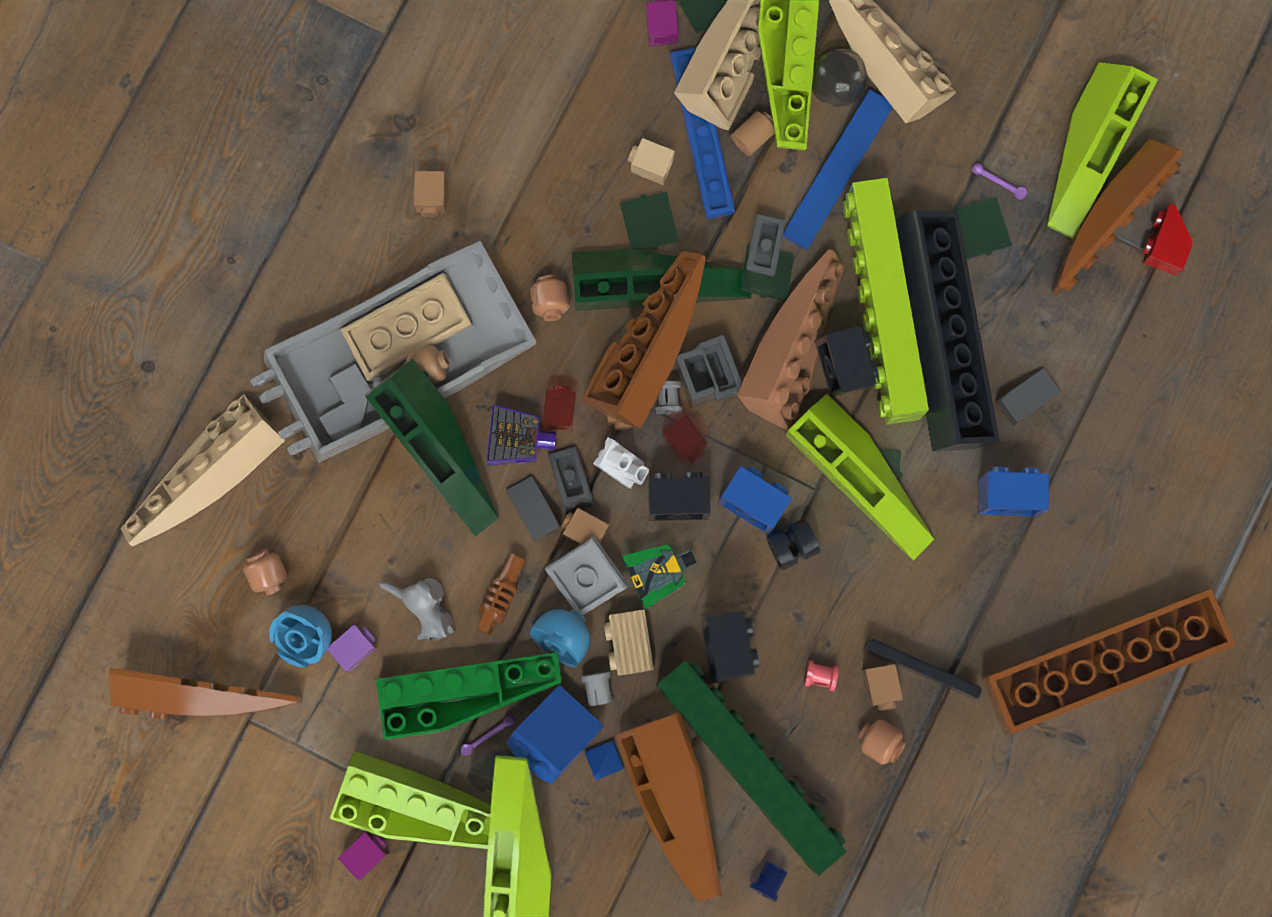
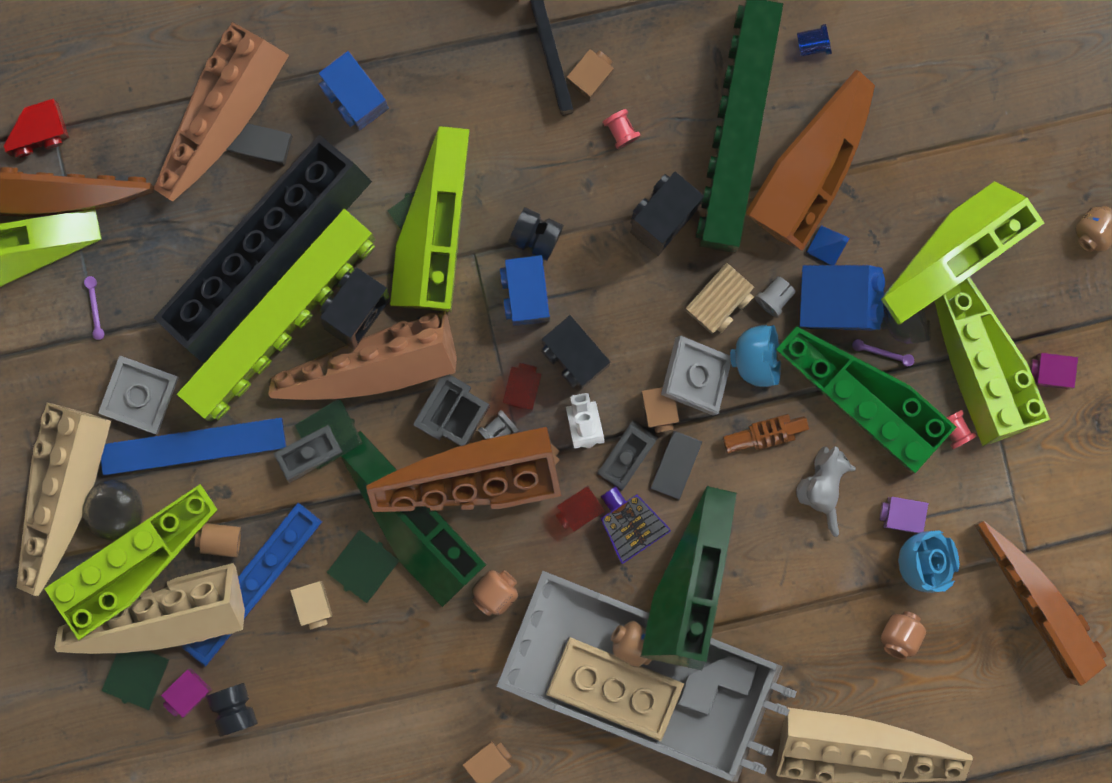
camera: 130 degrees left, 5 degrees up
(377, 744) = (962, 433): none -> coral bush
(623, 44) = (232, 709): none -> black wheel
(657, 573) = (646, 322): torso -> none
(882, 741) = (635, 40): nougat head -> none
(908, 160) = (138, 395): none -> light grey plate
(983, 228) = (146, 290): clear green piece -> none
(1078, 388) = (220, 106): none -> nougat wedge

